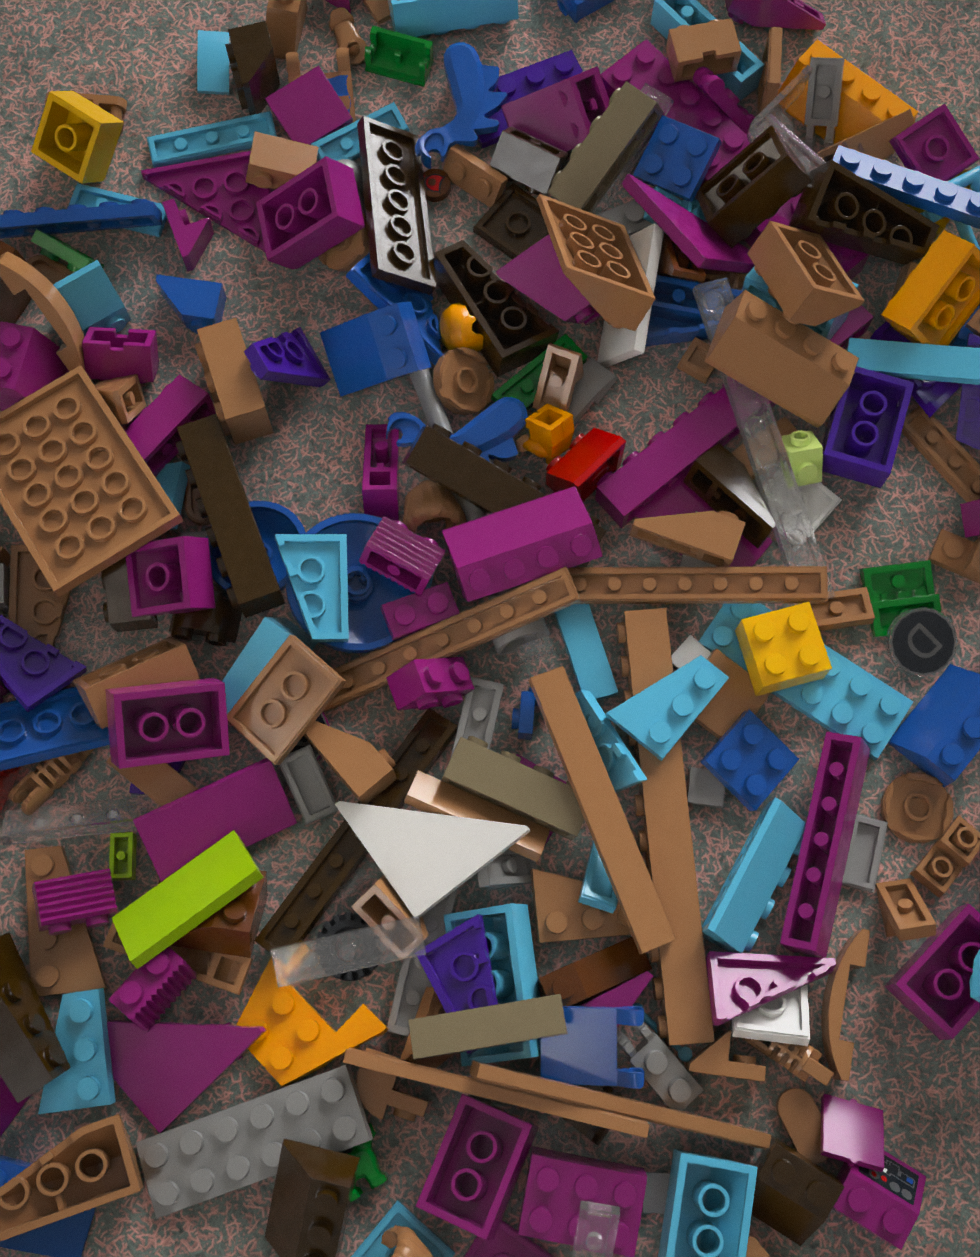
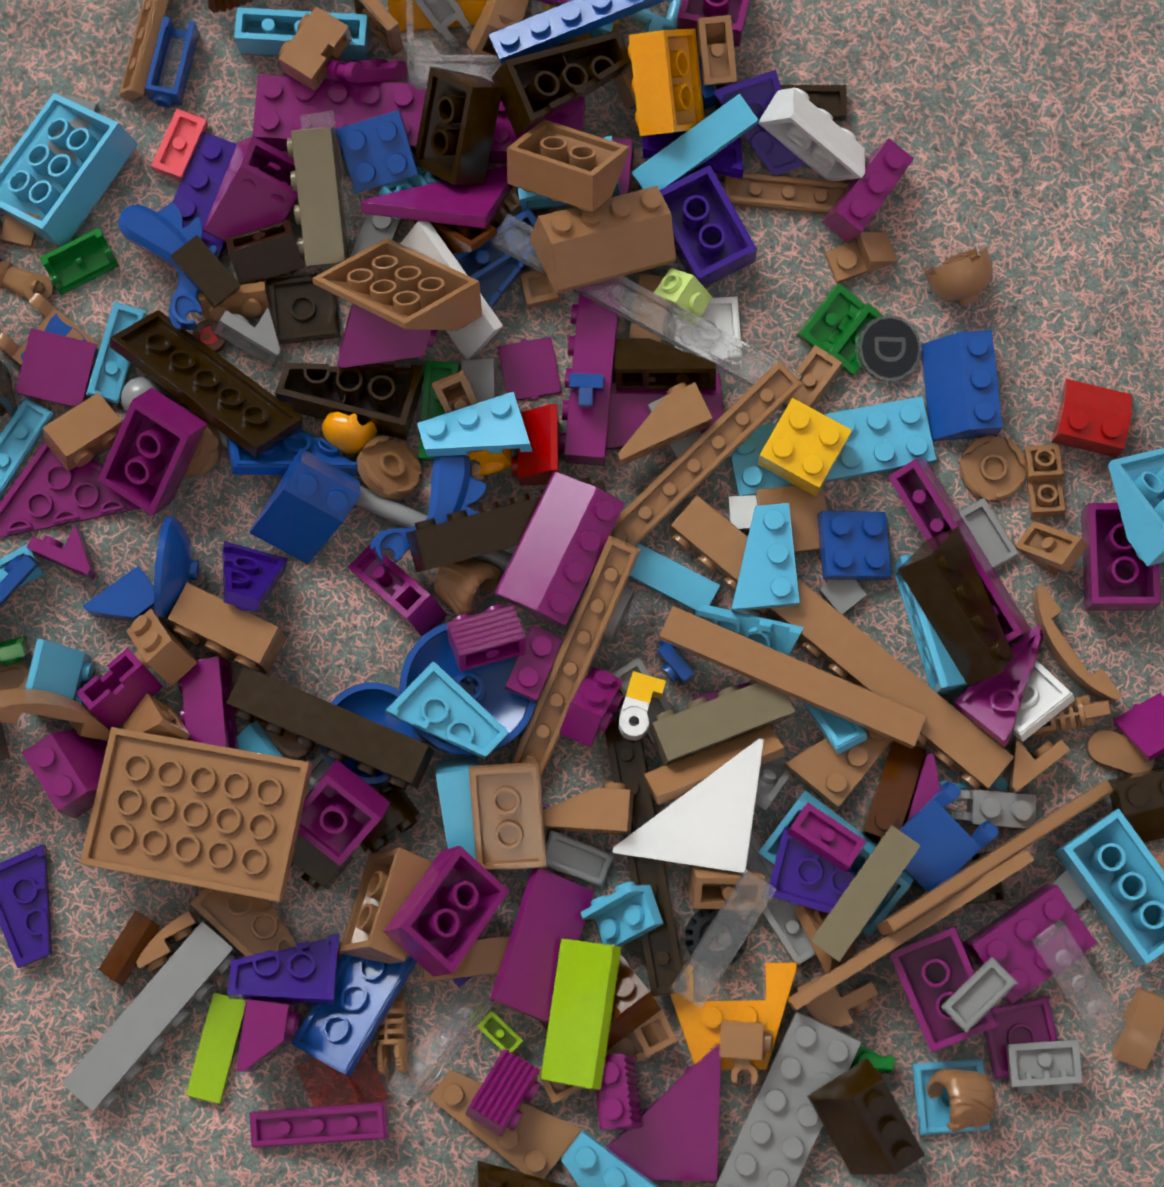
camera: 40 degrees left, 5 degrees up
(174, 350) = (160, 647): none -> medium nougat brick
(240, 294) = (173, 566): none -> blue dish
(281, 1048) = (744, 1042): none -> medium nougat brick
(298, 859) = (624, 914): none -> medium azure bracket
(461, 211) = (257, 341): none -> light grey slope
(466, 714) = (633, 716): none -> leg
(472, 130) = (205, 271): none -> dark brown tile
(496, 1200) = (979, 994): none -> light grey tile
(502, 953) = (826, 837): none -> magenta plate
(546, 42) = (179, 144): none -> coral plate
(555, 407) = (481, 426): none -> medium azure wing
(635, 411) = (530, 368): none -> magenta piece
(661, 451) = (586, 385): none -> blue tile
(783, 879) = (958, 606): none -> dark brown wedge

